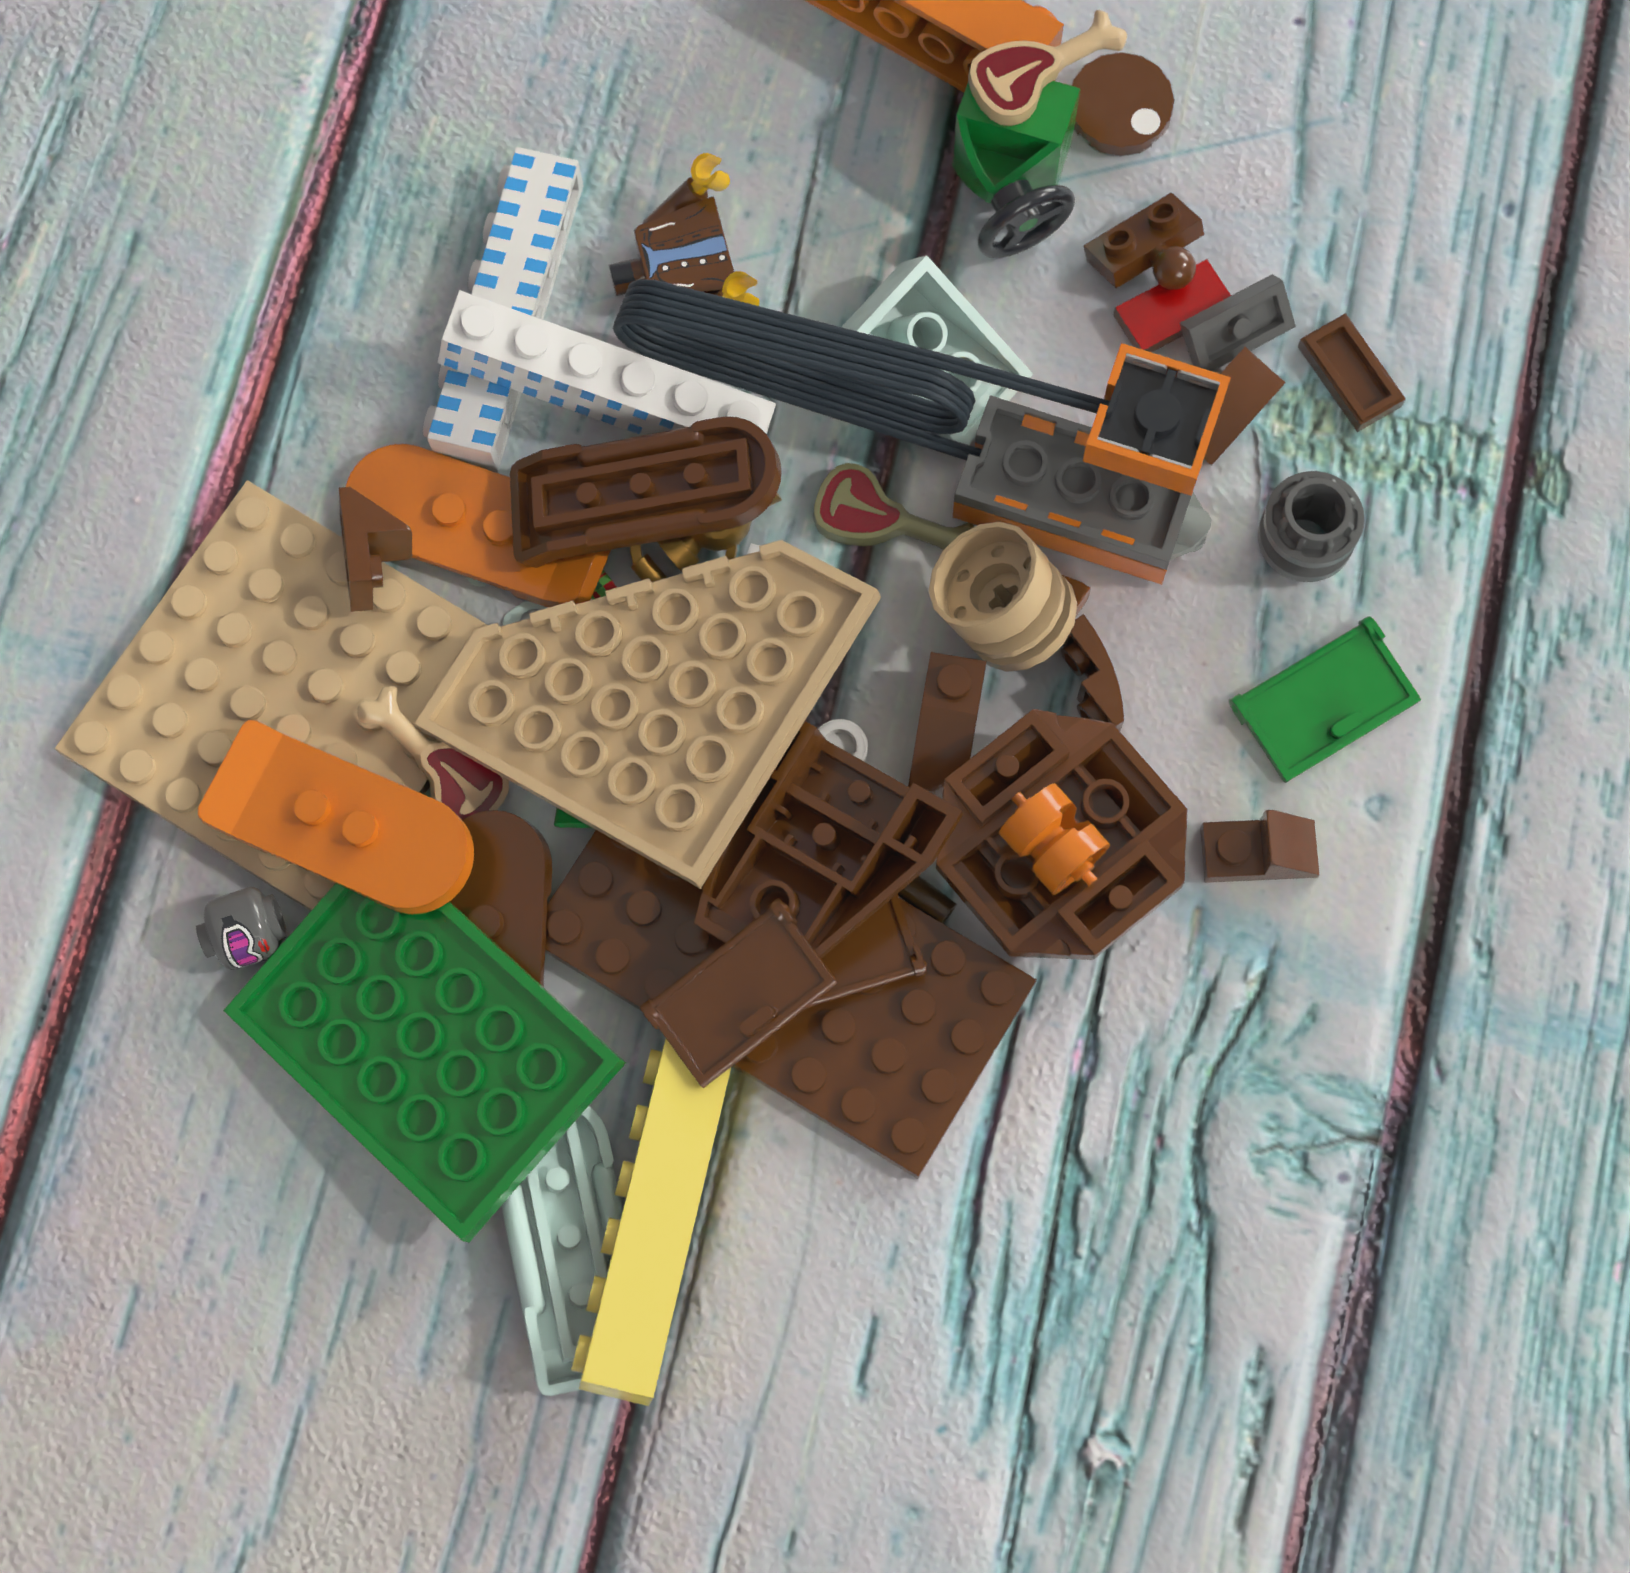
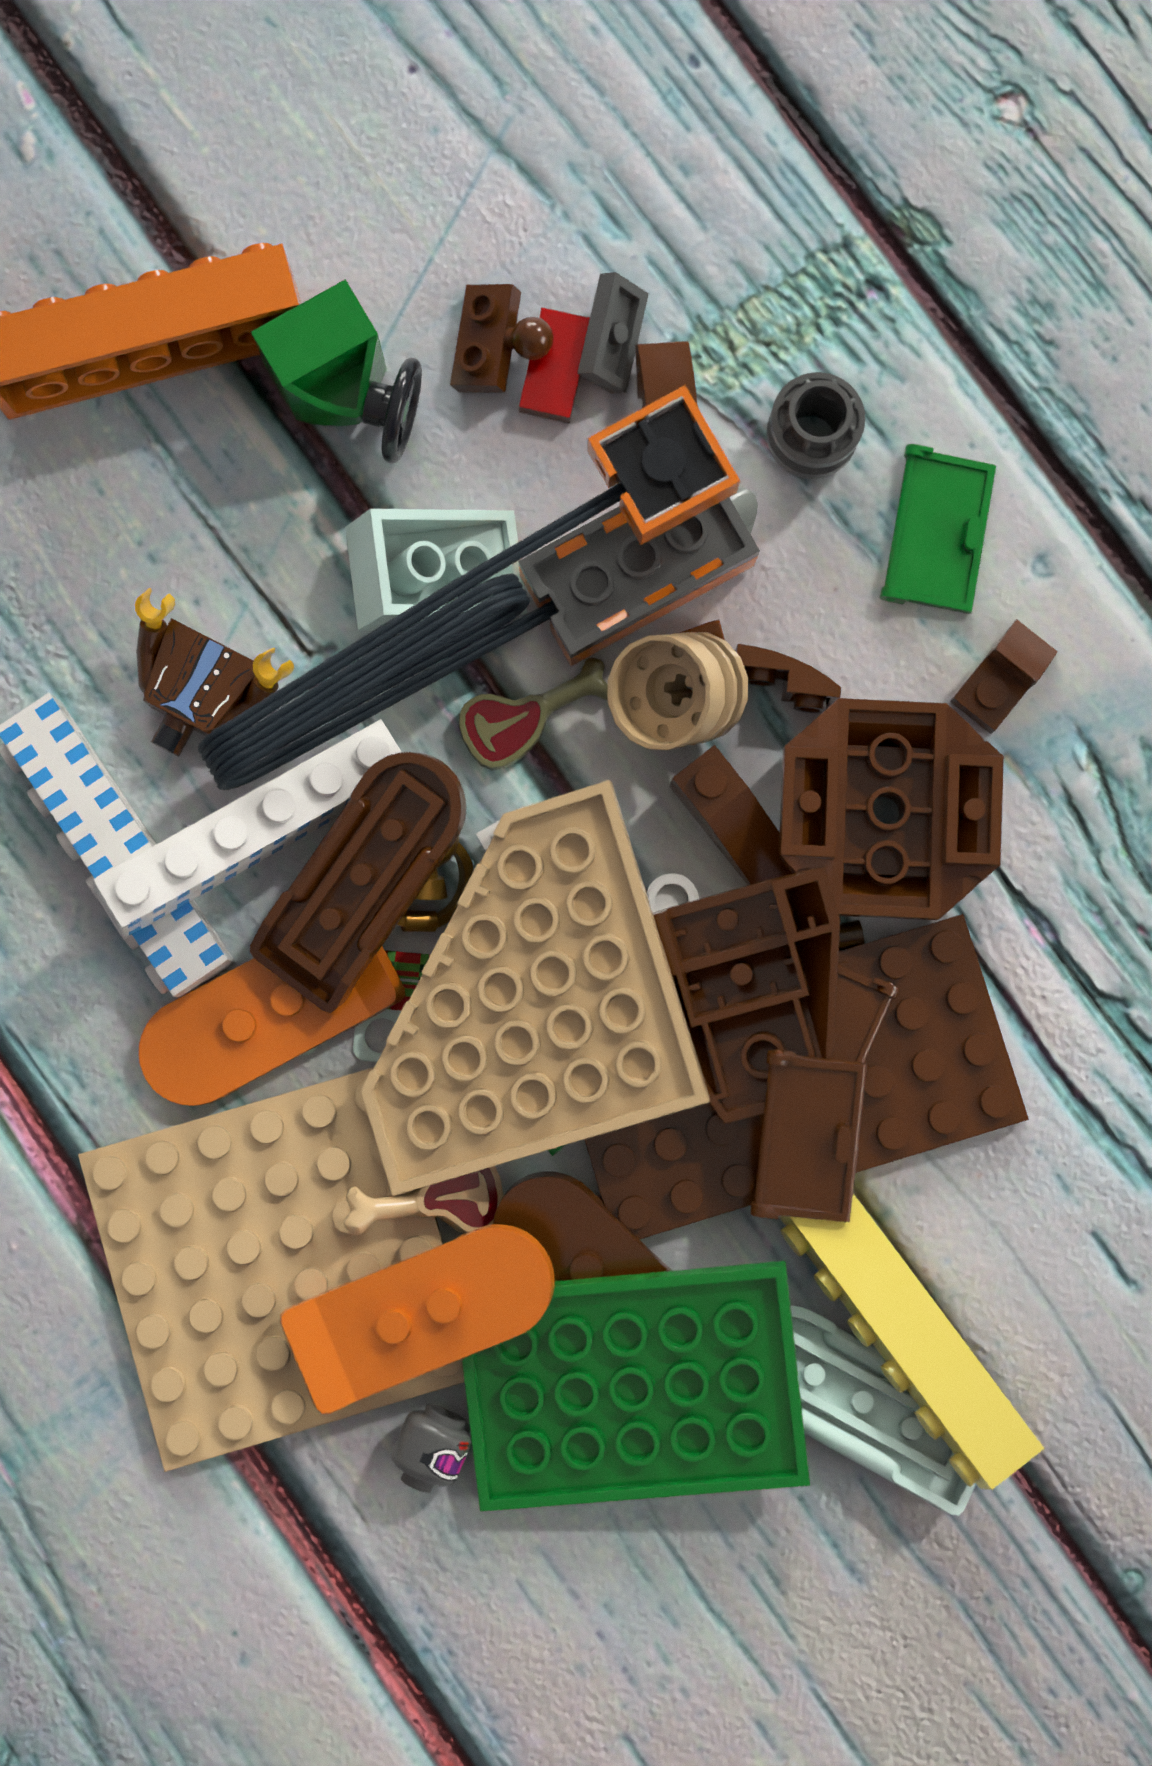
camera: 55 degrees left, 10 degrees up
(368, 539) = (211, 1105): reddish brown slope -> none
(1012, 74) = (291, 318): tan piece -> none
(1050, 834) = (899, 819): orange wheel -> none
(1122, 103) = (366, 249): reddish brown tile -> none
(1351, 372) = (717, 287): reddish brown tile -> none

